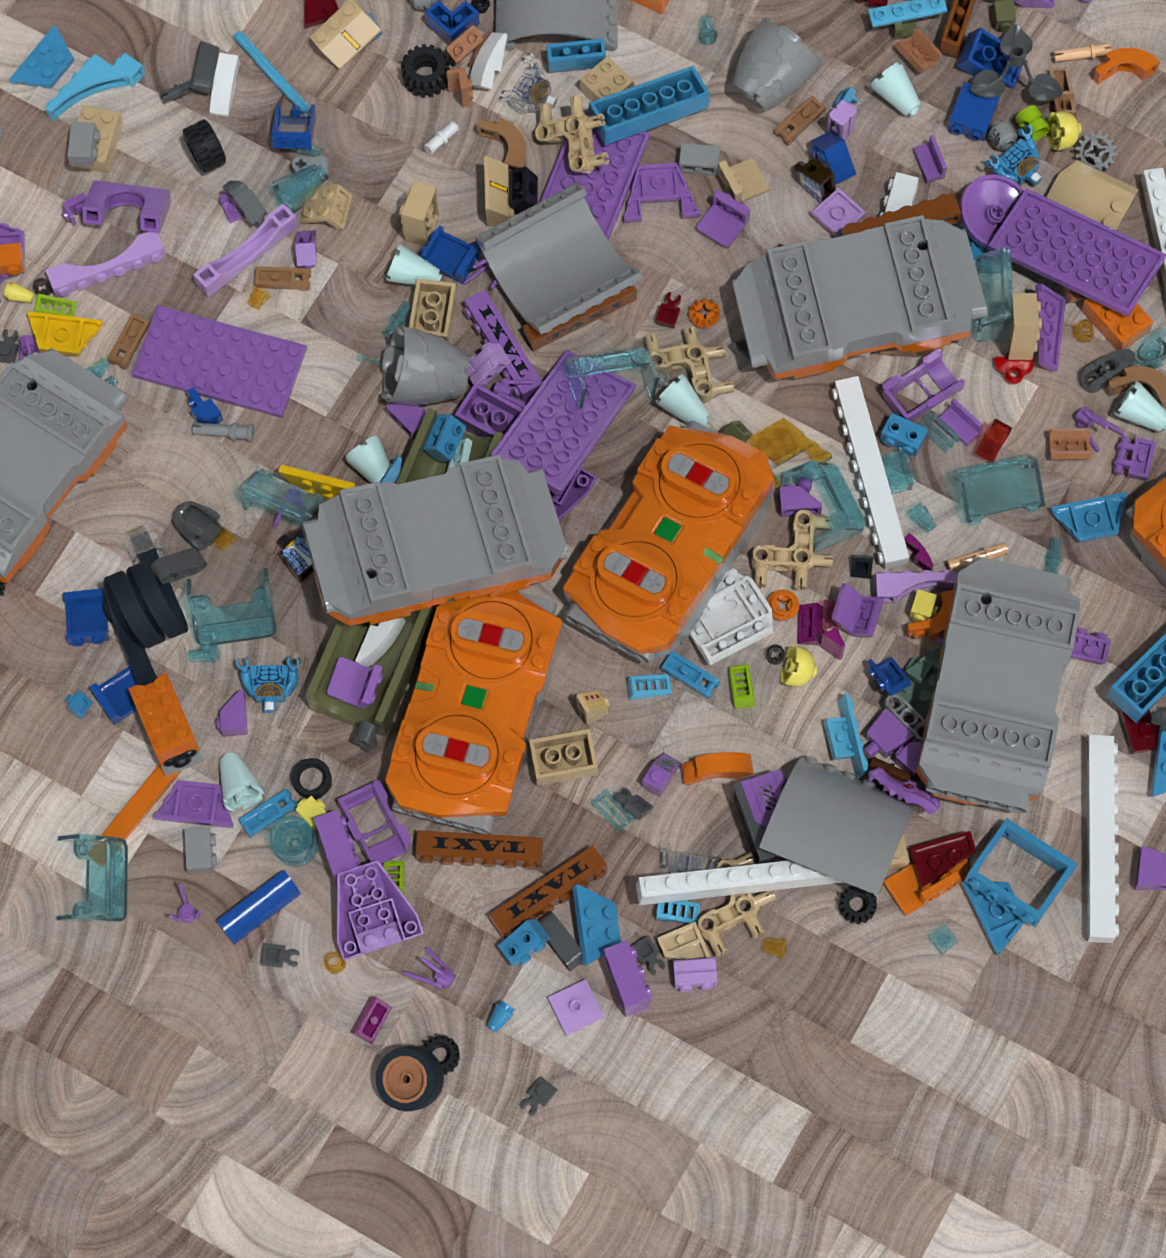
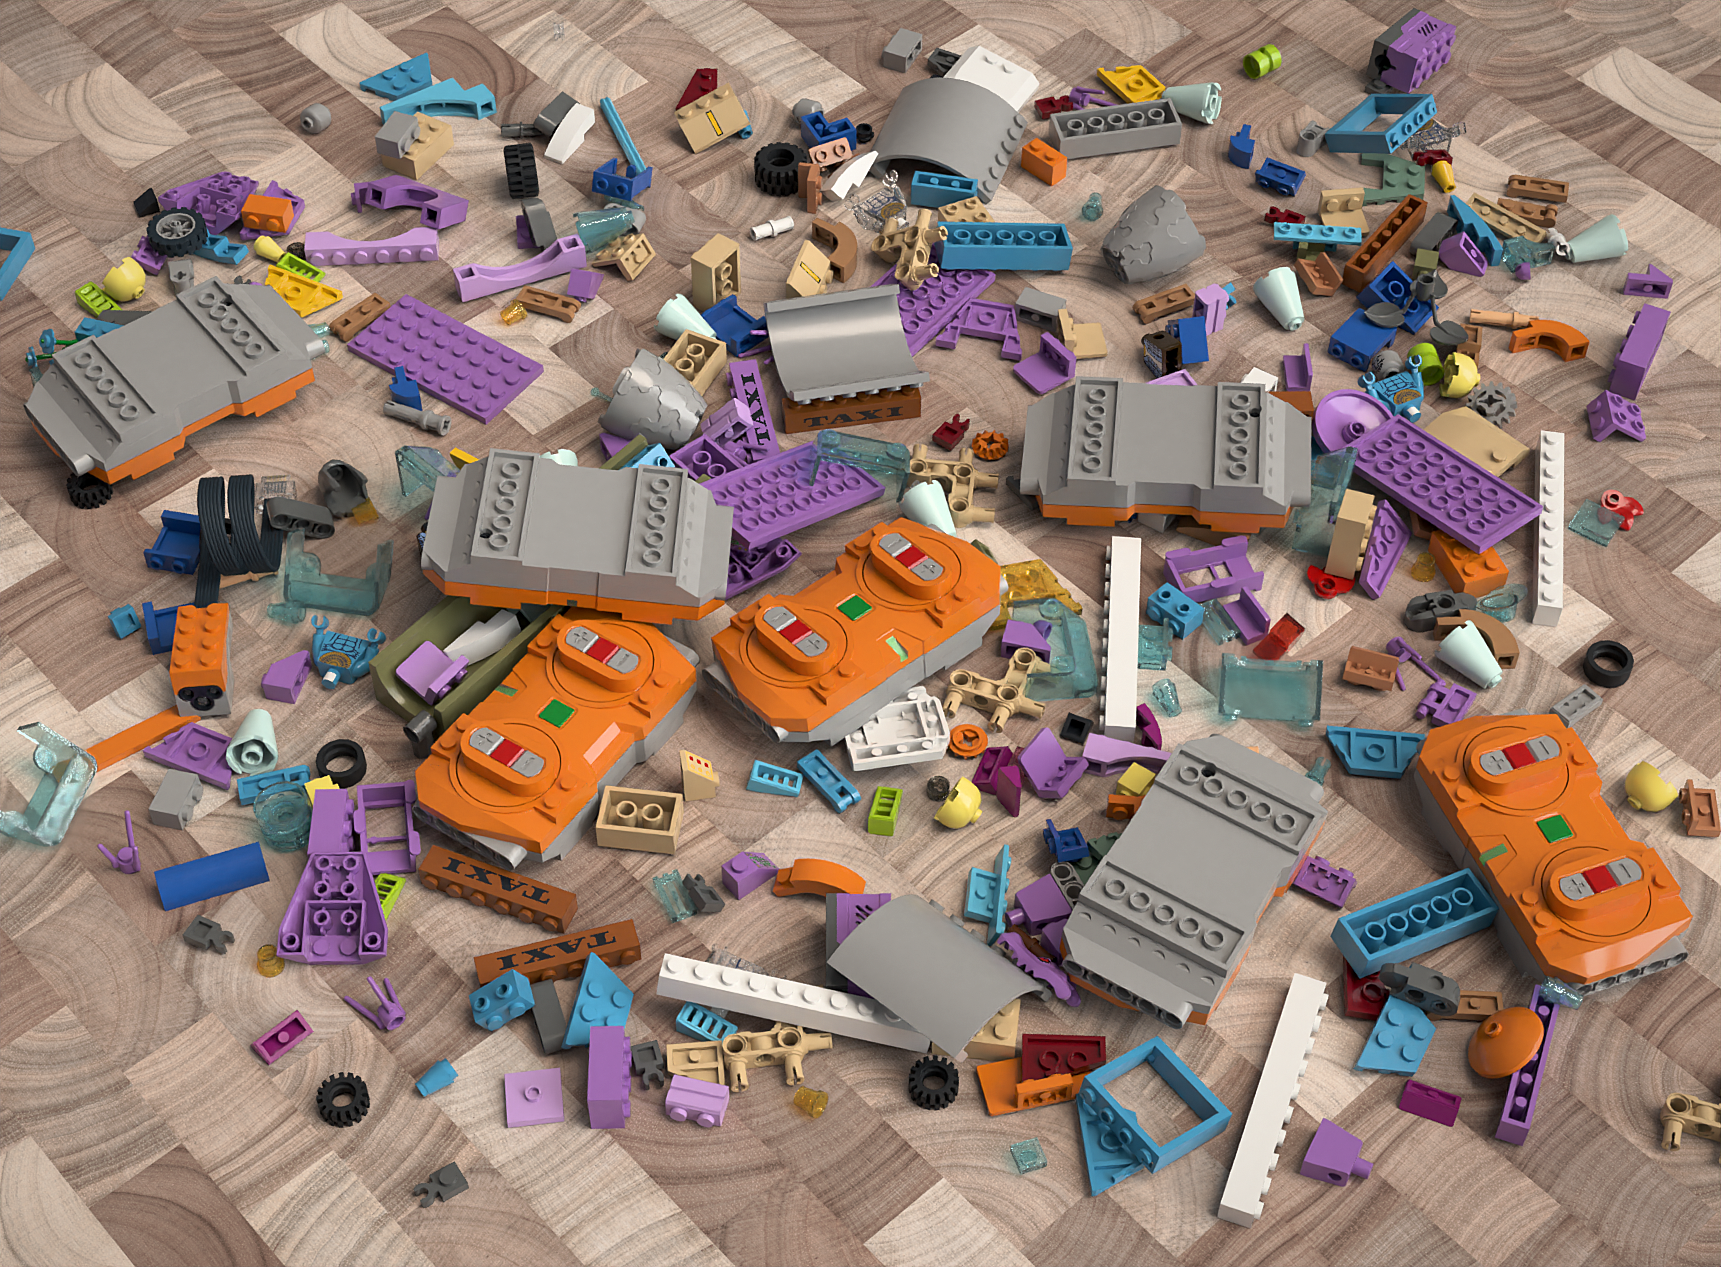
camera: 15 degrees right, 20 degrees down
(424, 1073) = (289, 1108): wheel -> none
(522, 189) = (837, 278): black brick -> none

